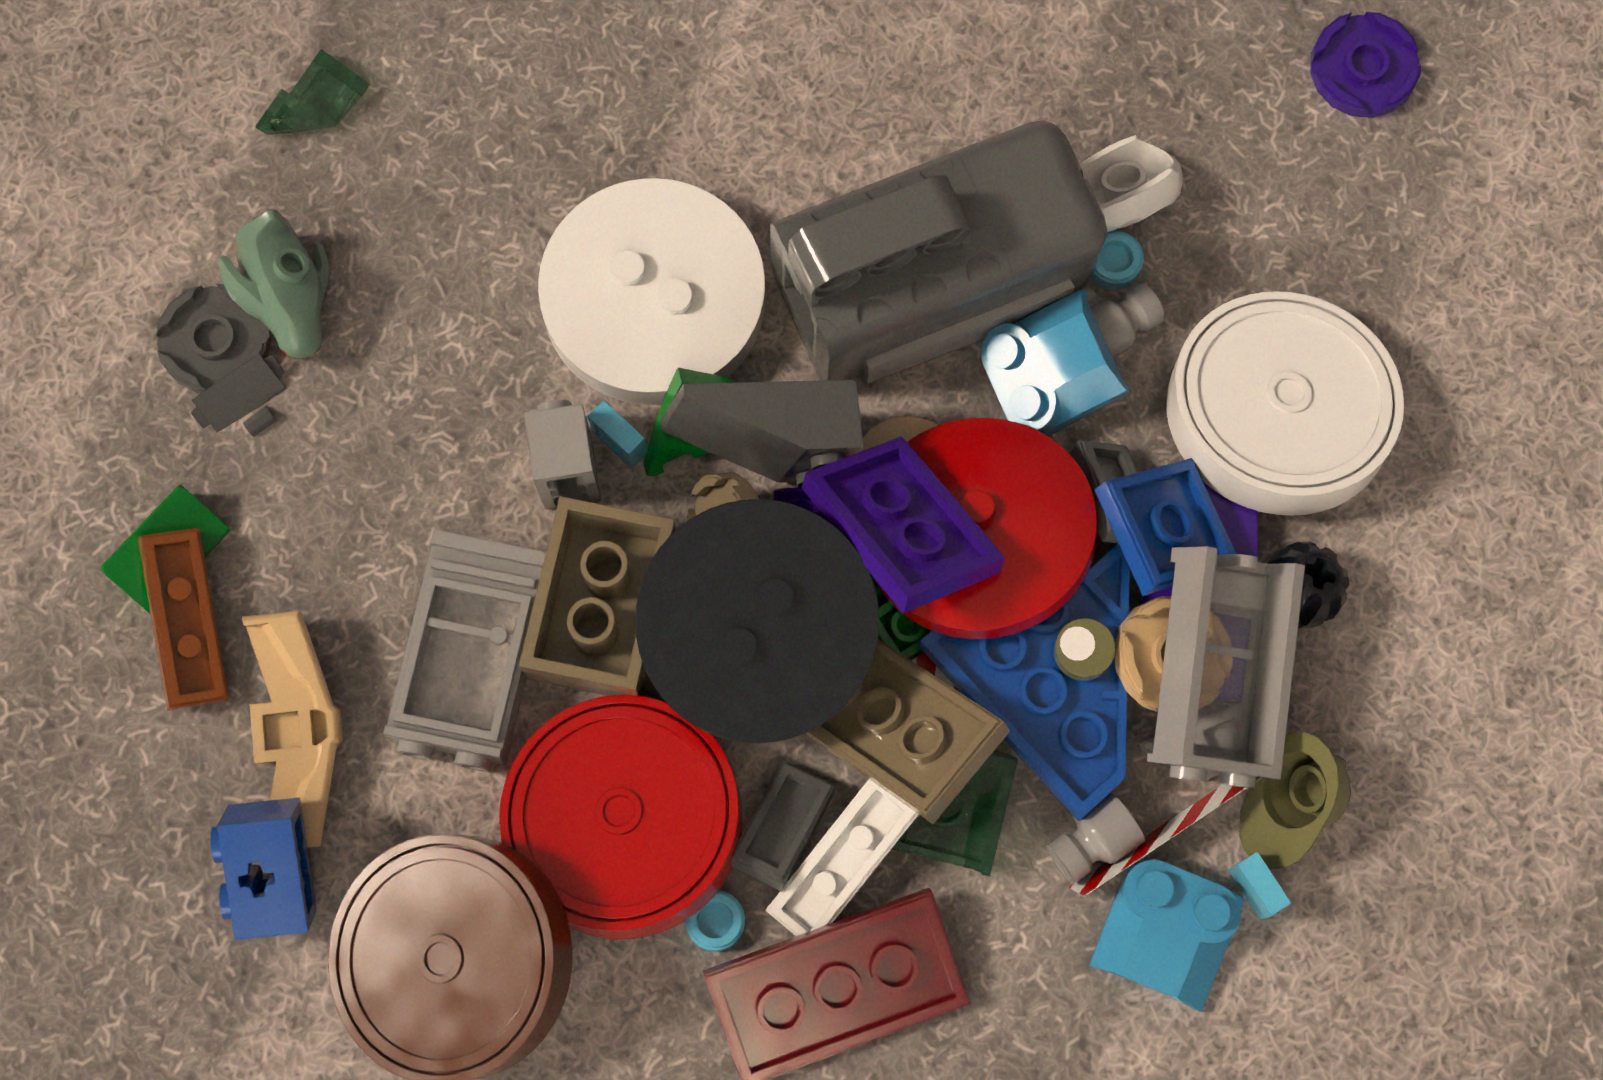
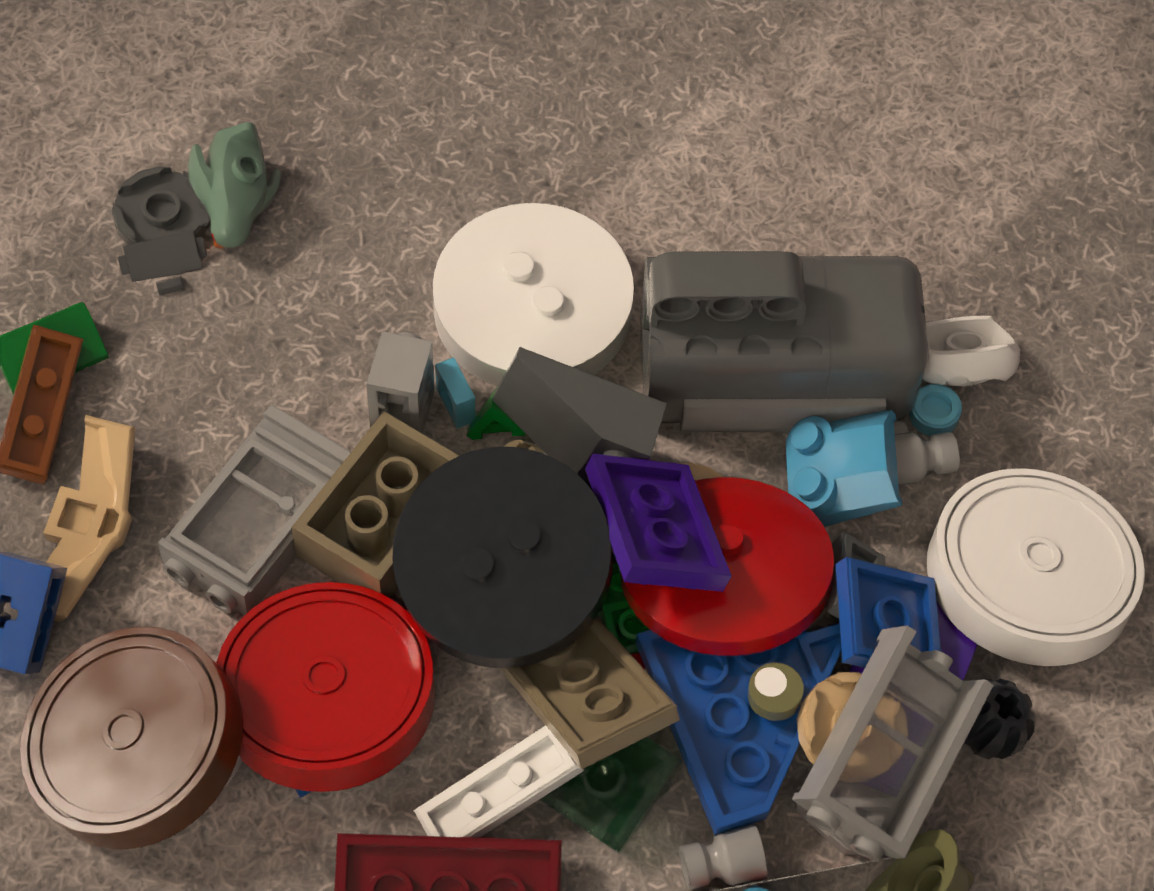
camera: 20 degrees right, 15 degrees down
(317, 100) = (326, 67): clear green slope -> none
(718, 923) = (368, 806): medium azure tile -> none
(782, 825) = (457, 746): dark grey tile -> none

